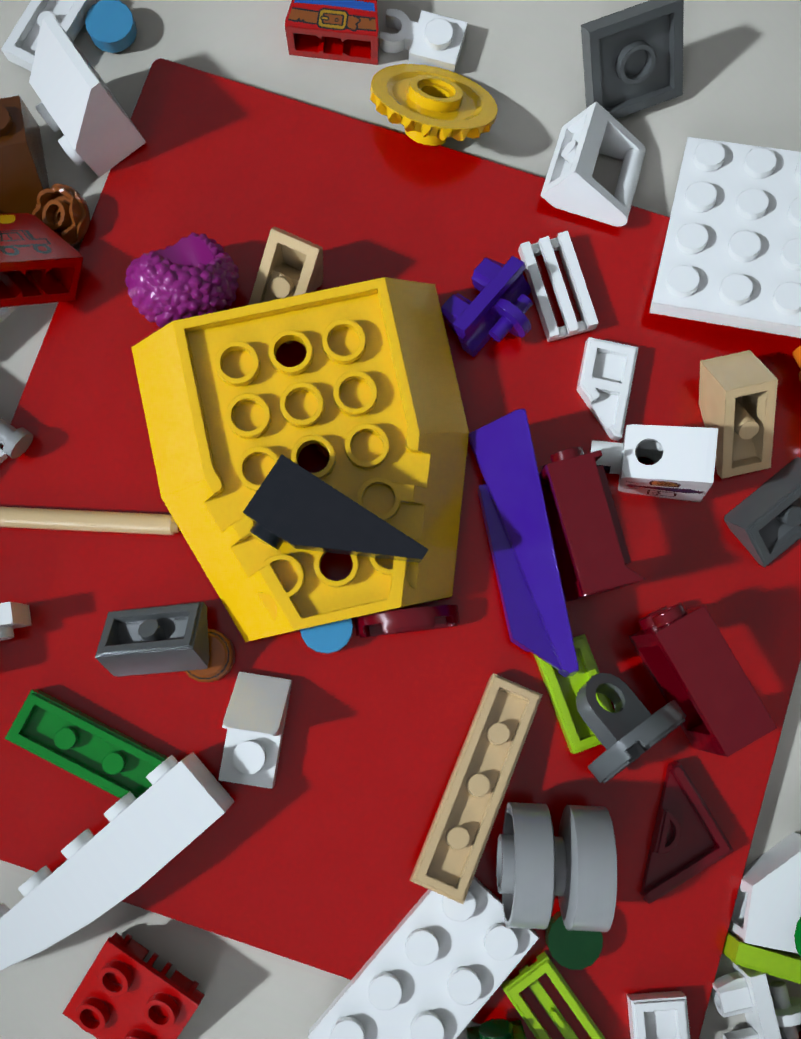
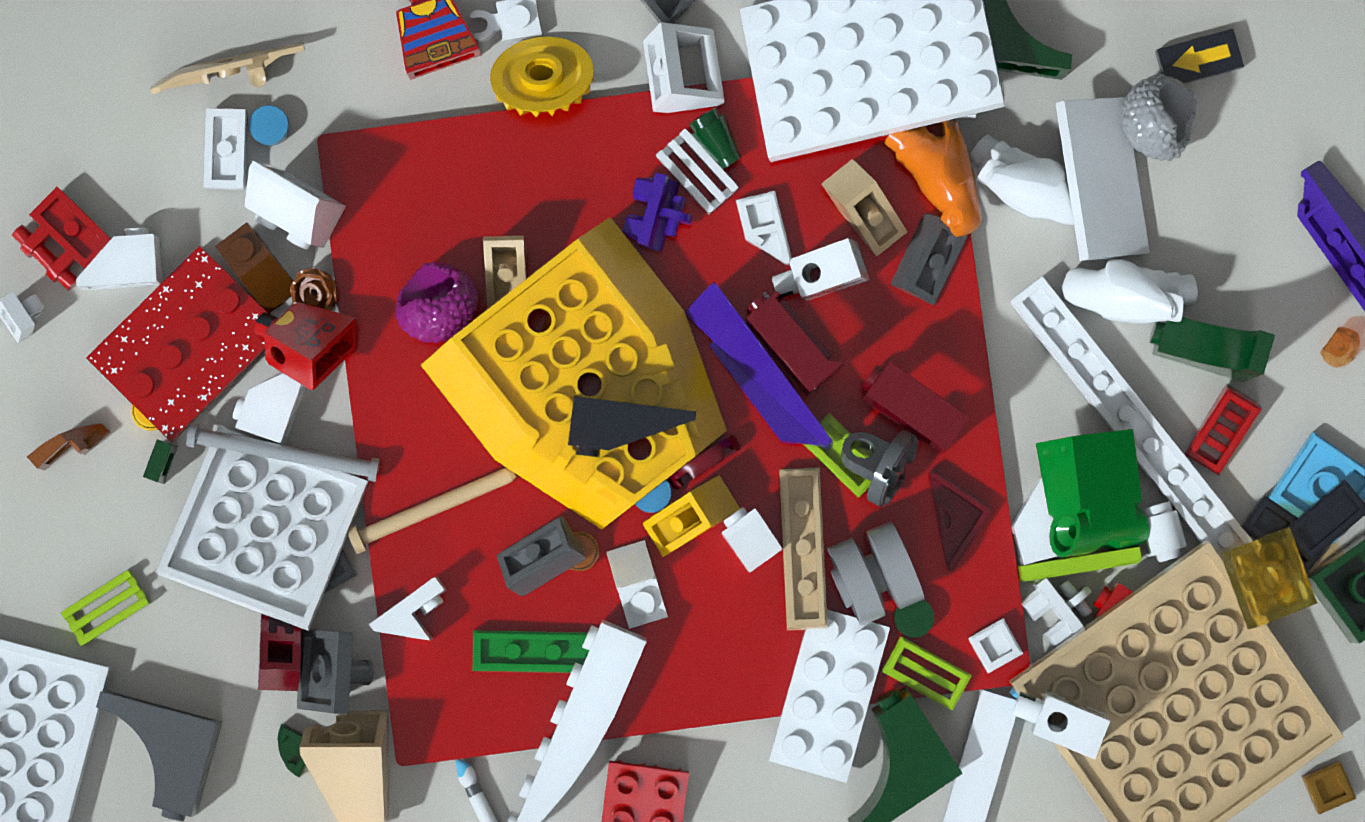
camera: 15 degrees left, 5 degrees up
(361, 678) = (691, 515): none -> yellow slope
(419, 743) = (750, 538): none -> white slope
(598, 254) = (716, 138): none -> dark green cone

